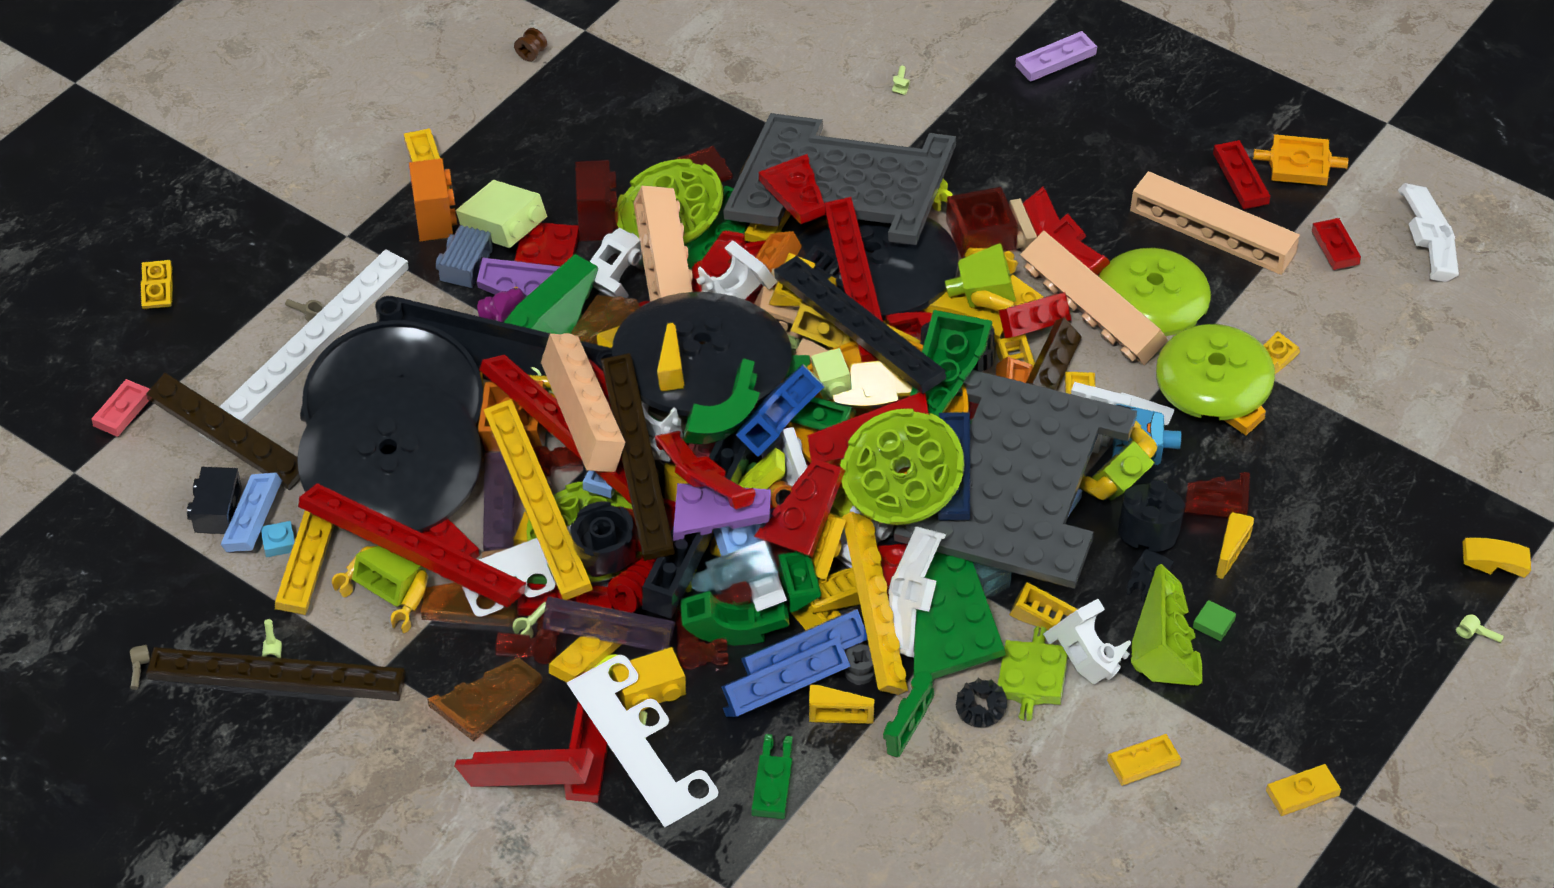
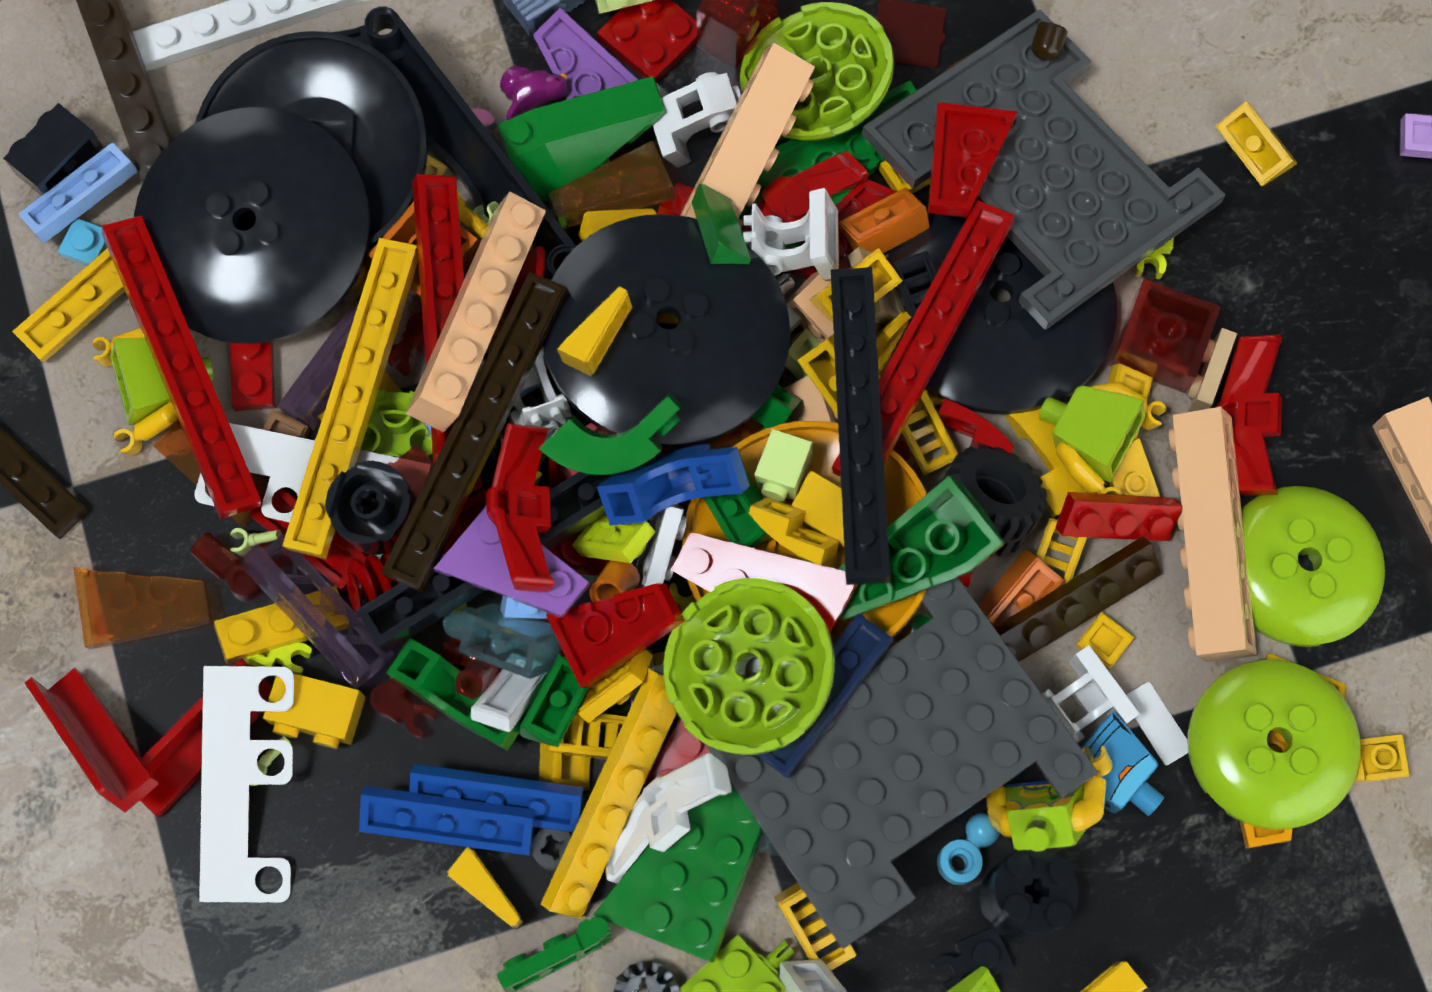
camera: 35 degrees right, 25 degrees up
(688, 287) = (719, 227): none -> green slope
(772, 780) = (351, 928): green hinge -> none
(791, 120) = (1048, 41): none -> dark brown piece
(900, 83) = (1236, 57): yellowish green hand -> none
(947, 116) = (1255, 143): none -> yellow slope
(1097, 521) = (979, 834): none -> medium azure plate
(1218, 496) = (1141, 917): clear red wing -> none

